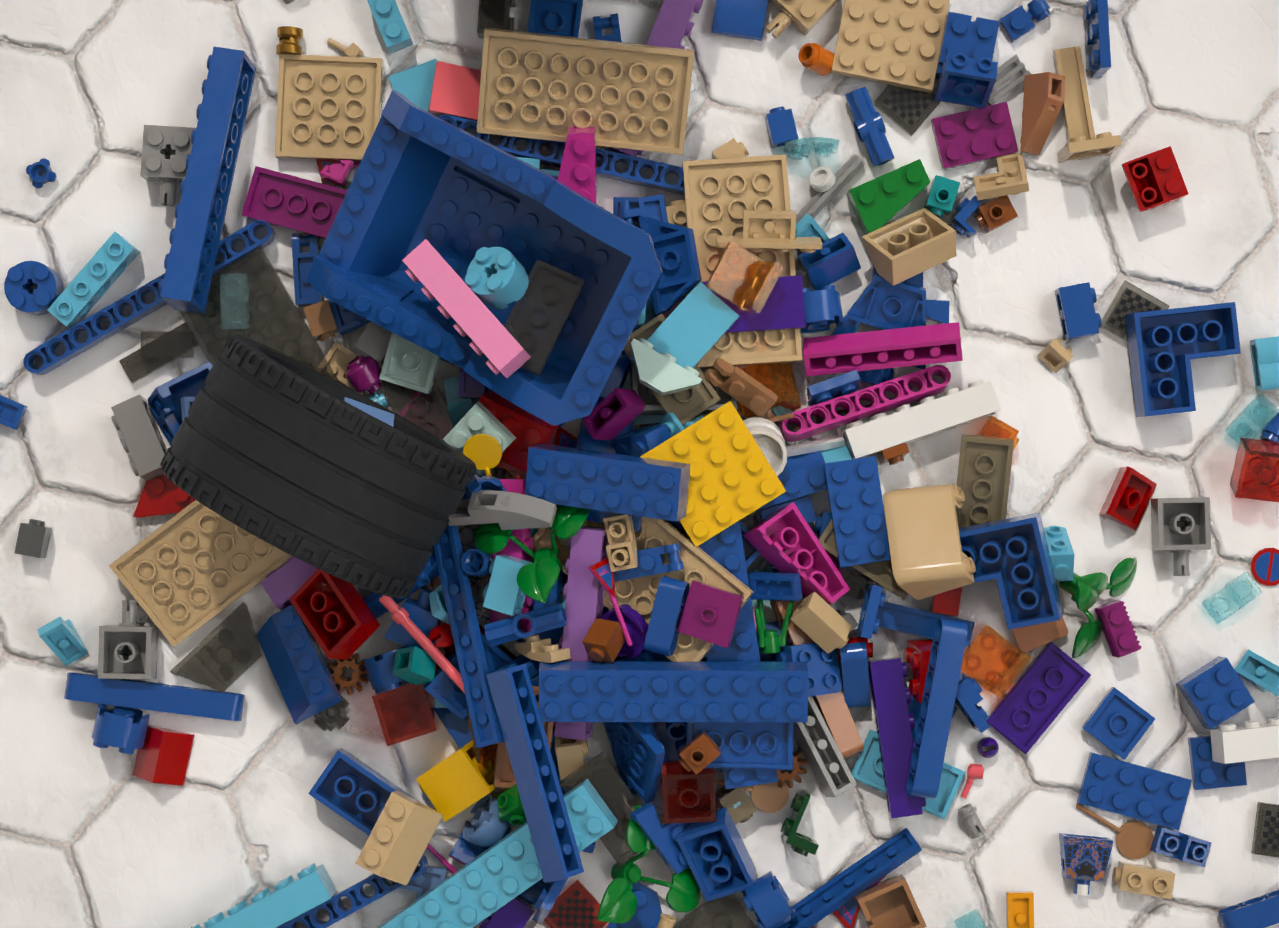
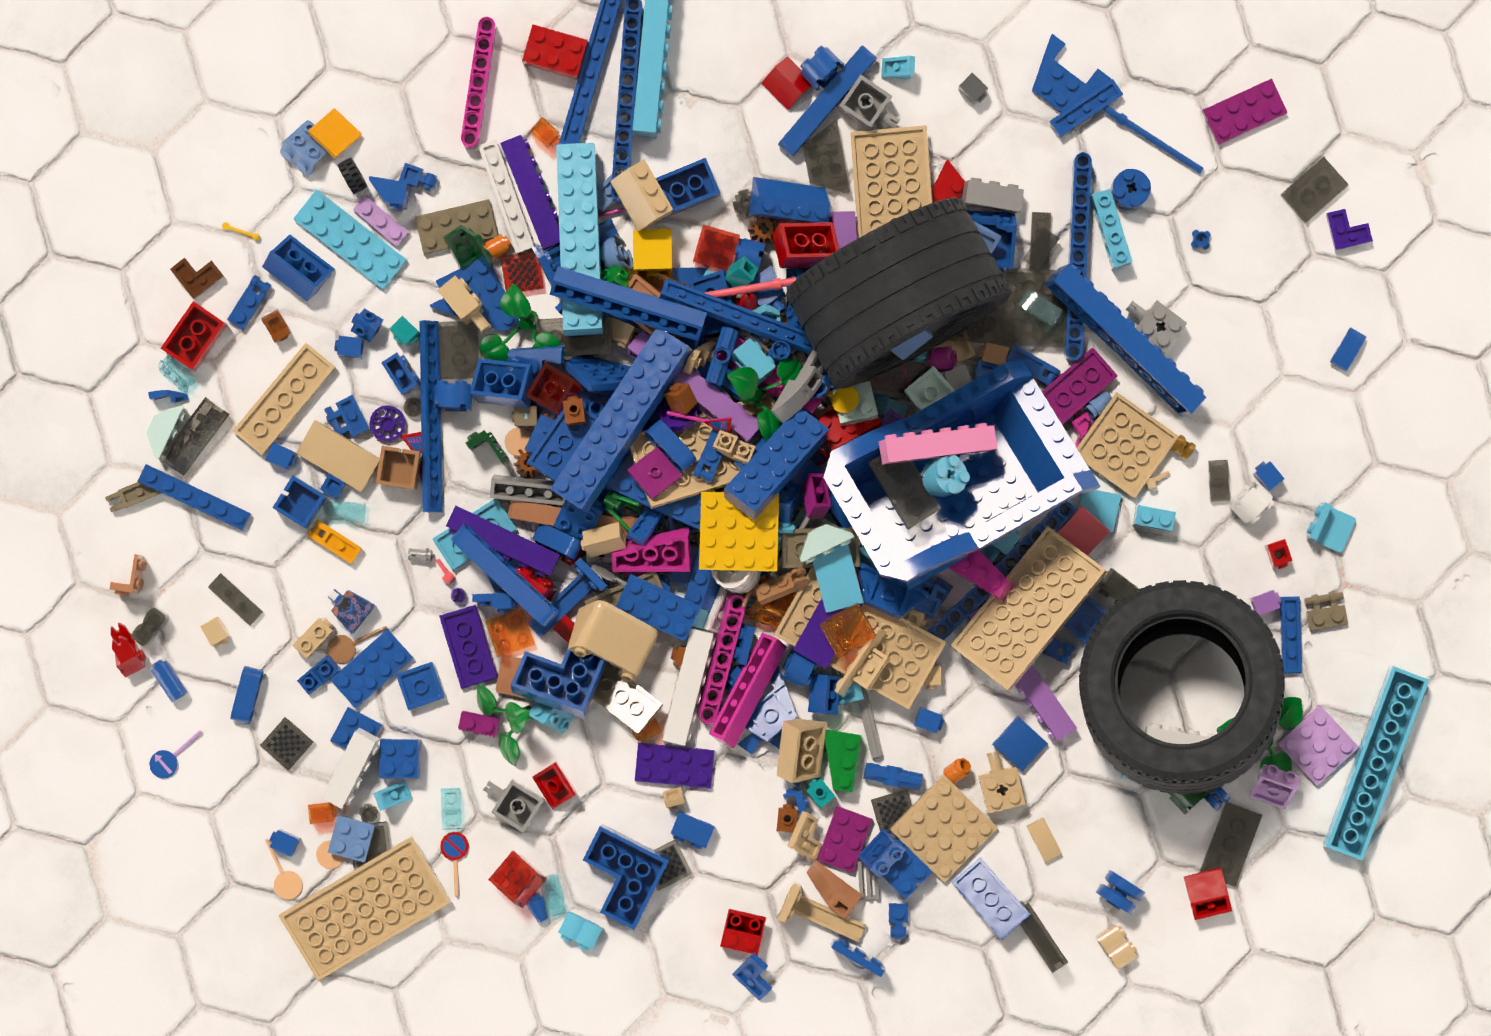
camera: 125 degrees right, 0 degrees up
(303, 167) = (1097, 404): none -> medium blue cone
(801, 147) = (907, 725): clear light blue slope -> none
(822, 179) = (879, 724): white tile -> none
(858, 597) = (606, 574): none -> light grey piece
(1018, 379) = (674, 765): none -> dark purple plate
(1195, 141) = (749, 976): none -> blue plate

